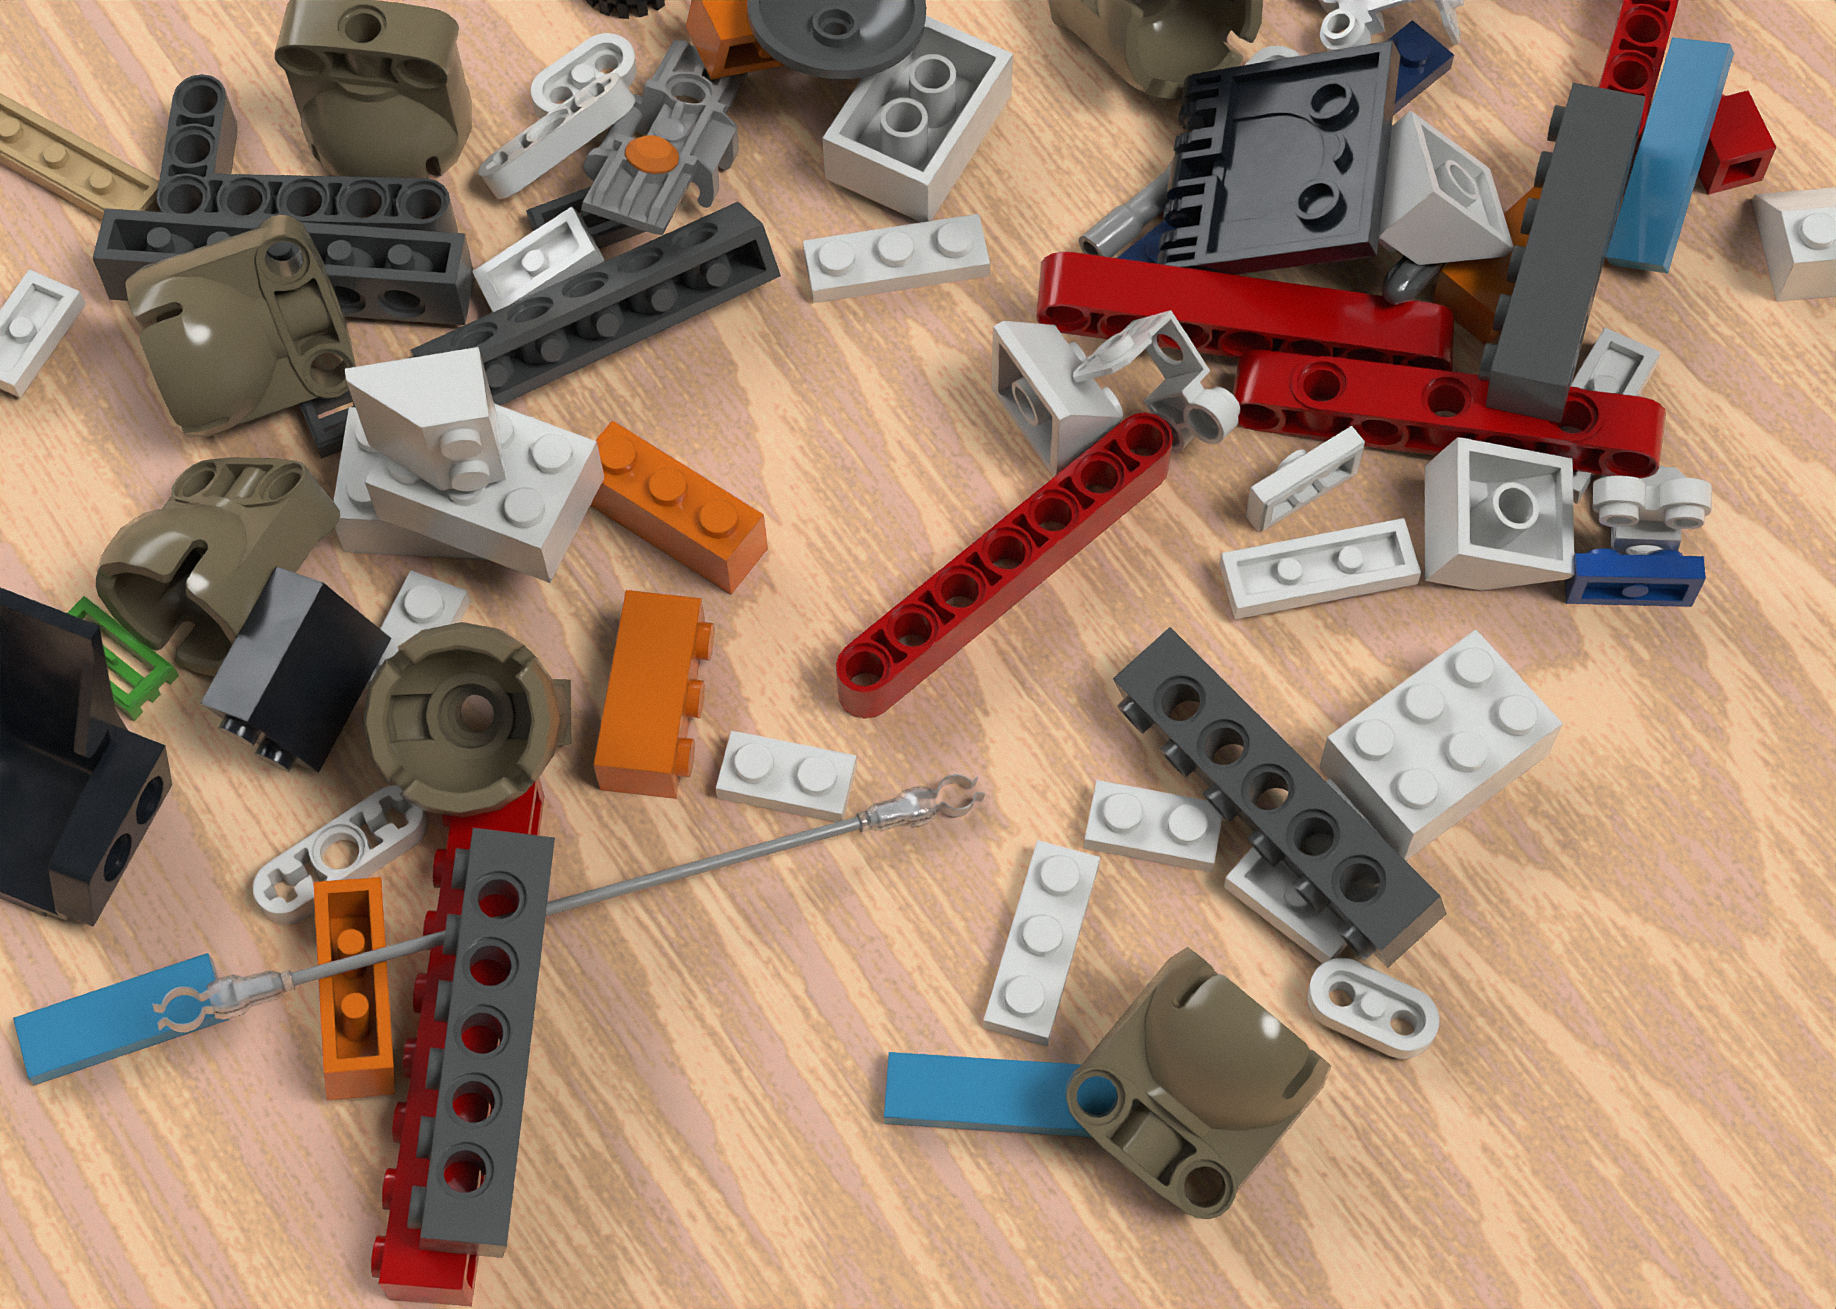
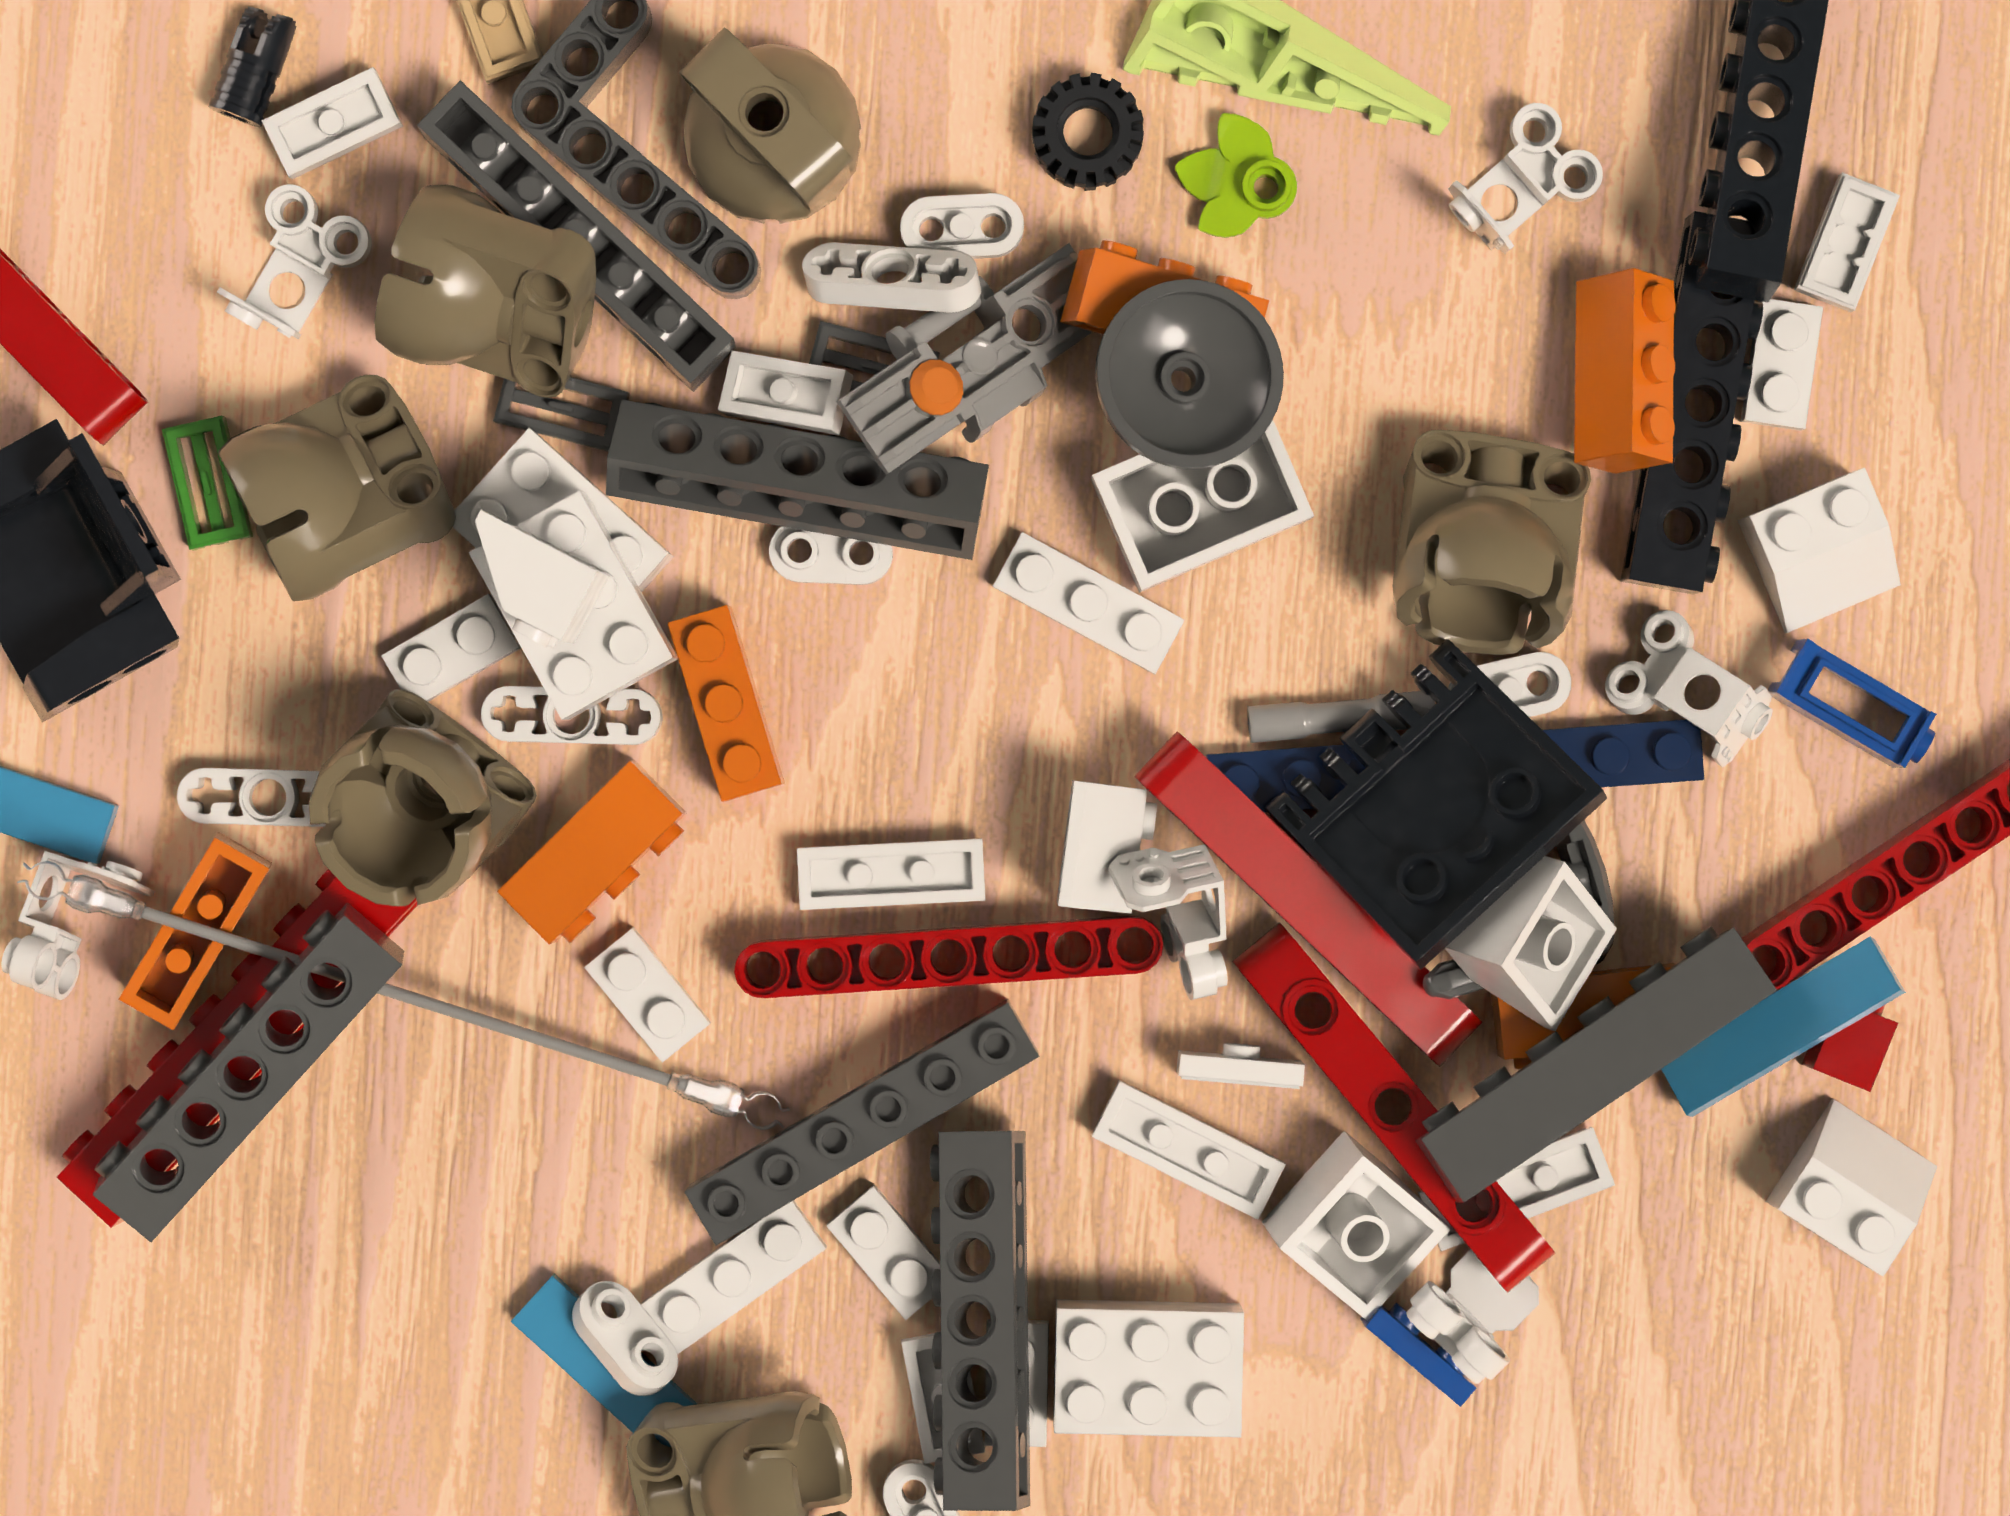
camera: 30 degrees right, 25 degrees up
(70, 442) = (299, 250): none -> white piece
(223, 1095) = (49, 955): none -> white piece
(295, 672) = (324, 641): black brick -> none
(579, 573) = (525, 729): none -> white beam
(670, 360) = (828, 560): none -> white plate
(907, 541) = (891, 874): none -> white plate
(993, 1049) = (621, 1339): none -> white plate
(1042, 734) = (861, 1122): none -> dark grey brick

